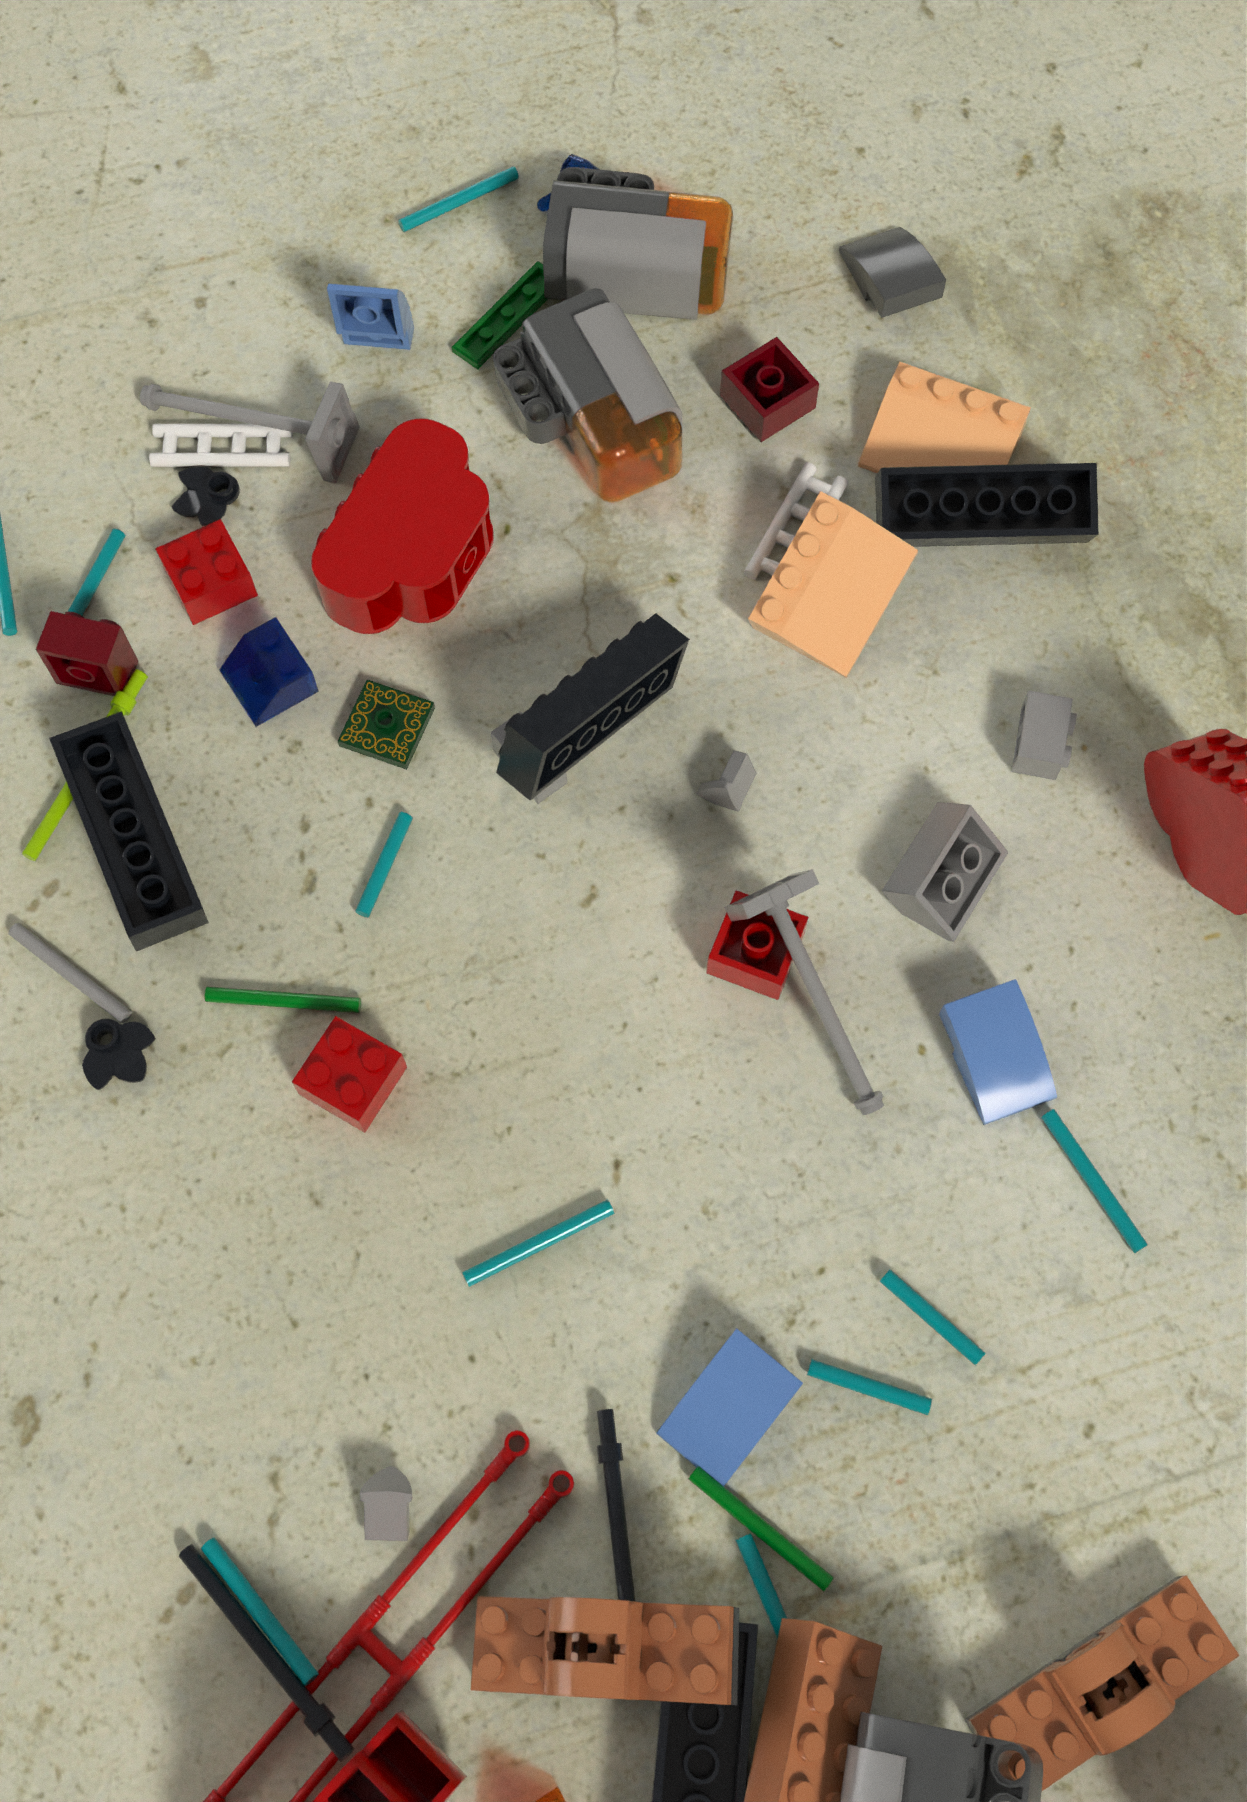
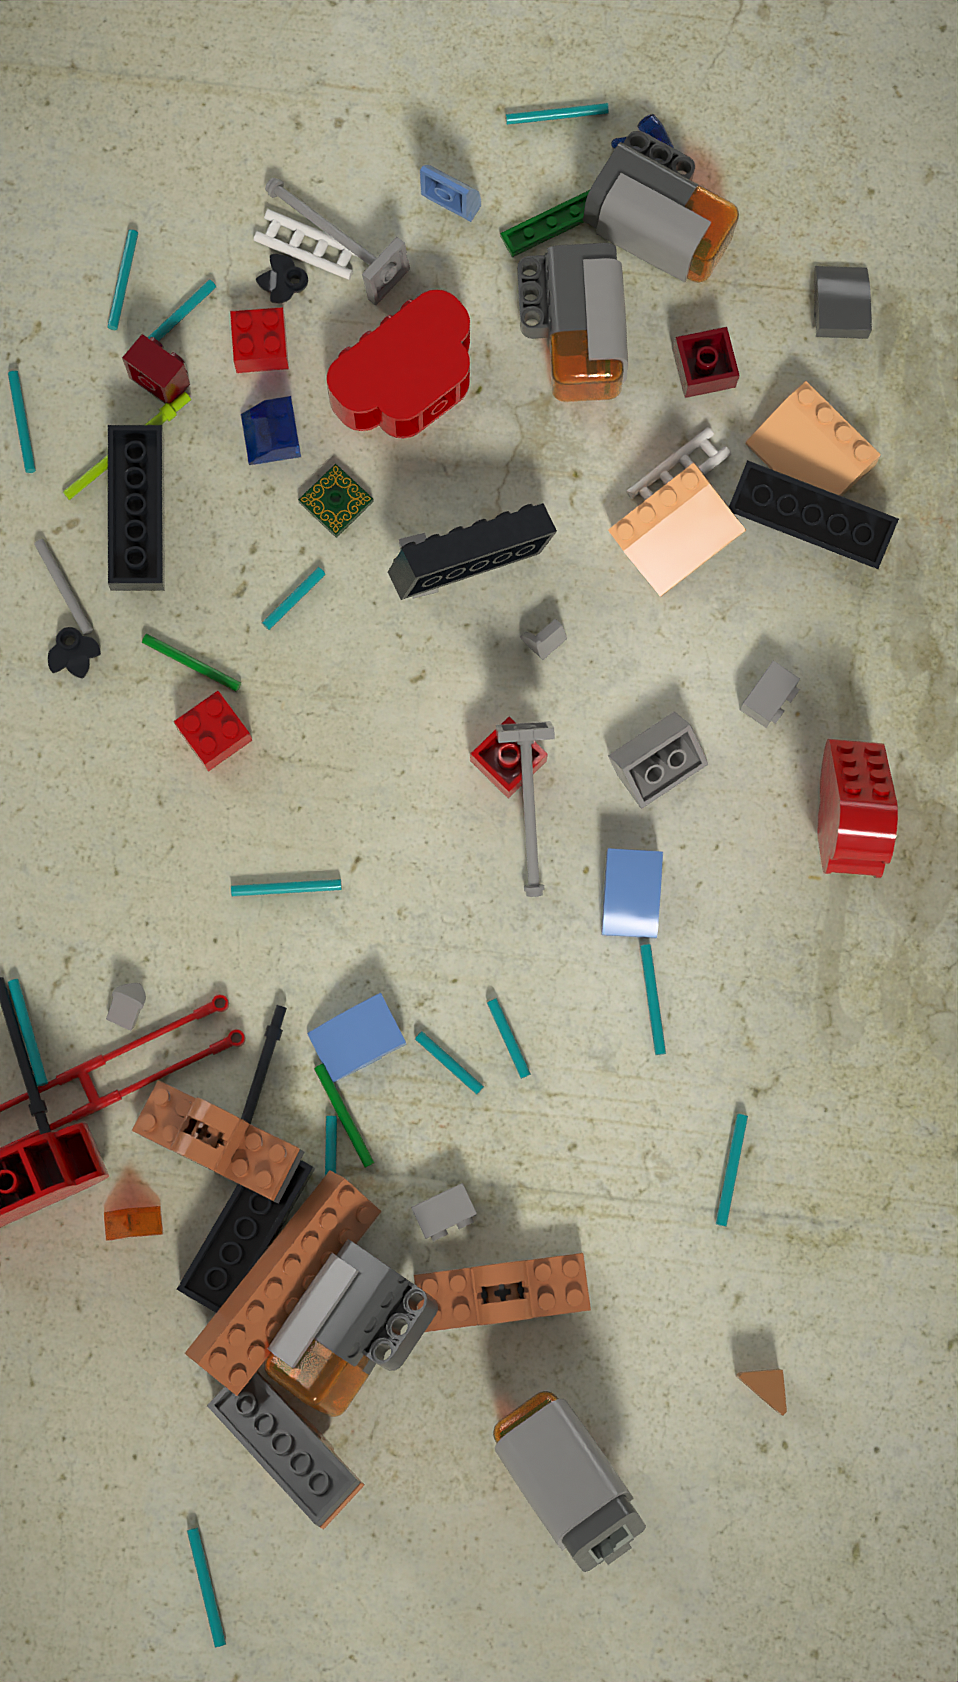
camera: 20 degrees right, 10 degrees up
(966, 1605) = (444, 1211): none -> light grey brick

